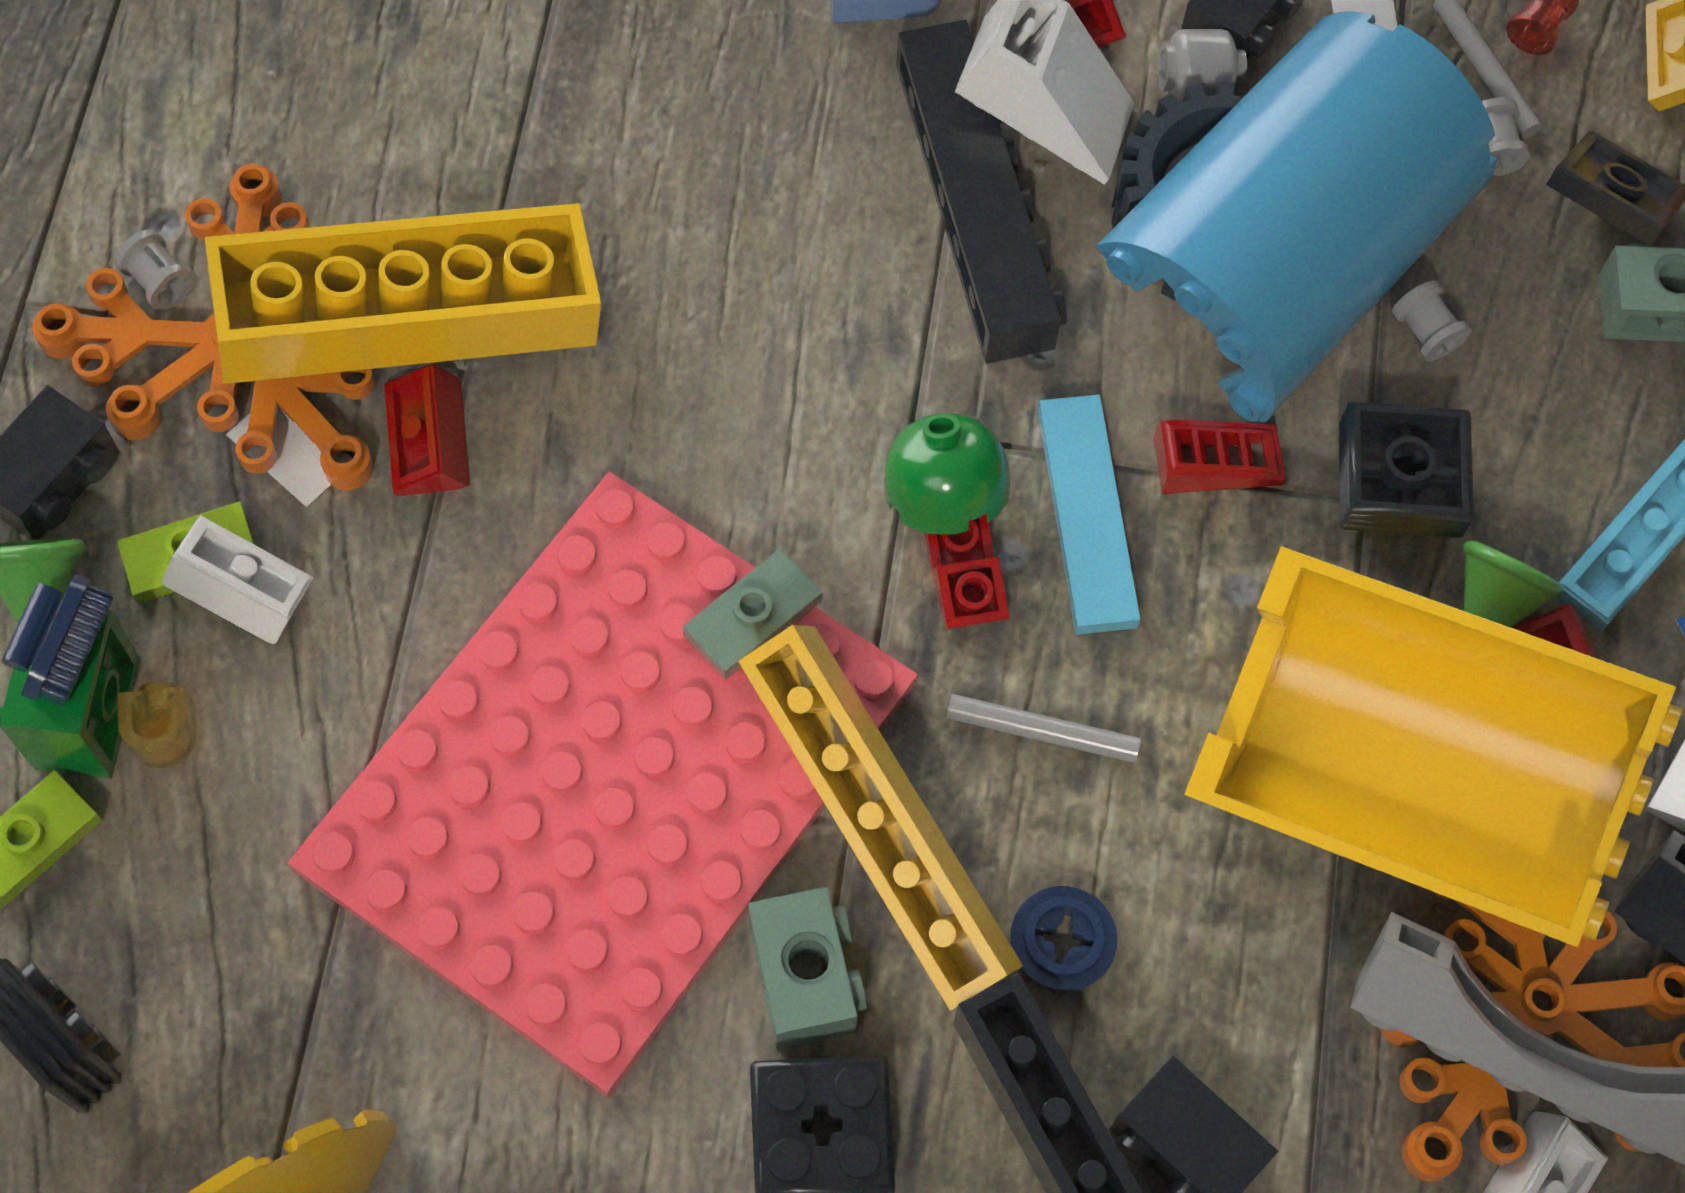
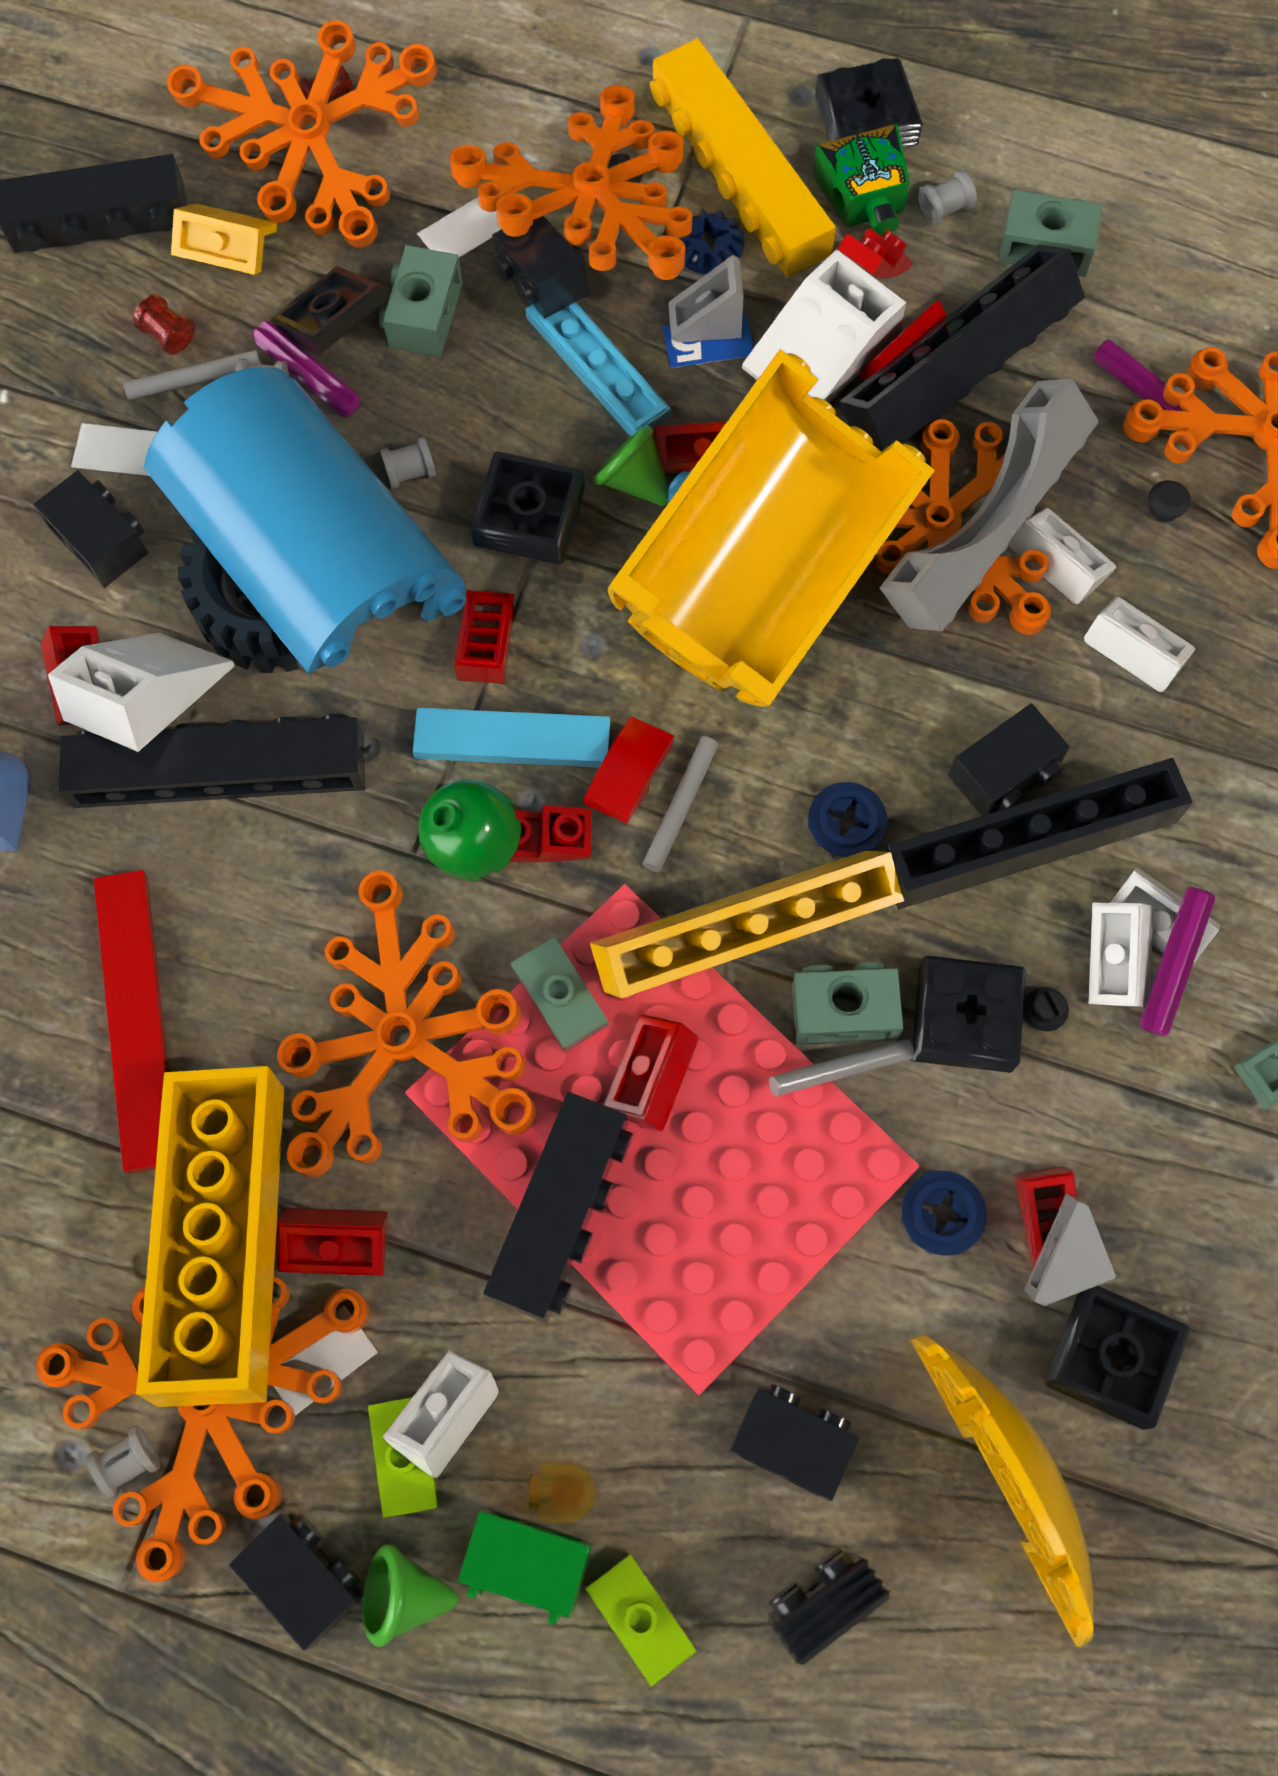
camera: 75 degrees left, 5 degrees up
(57, 638) = (509, 1552): dark blue piece -> none
(239, 980) = (795, 1442): none -> black brick
(482, 652) = (557, 1208): none -> black brick
(531, 1107) = (965, 1204): none -> dark blue gear
(582, 412) = (464, 1079): none -> orange plant
(671, 738) = (652, 1071): none -> red slope
(679, 168) = (133, 1013): none -> red tile
(717, 970) = (841, 1067): none -> light grey bar
(1072, 650) = (628, 769): none -> red slope
(1199, 58) = (147, 572): light grey head -> none
(1531, 186) = (307, 368): none -> magenta axle

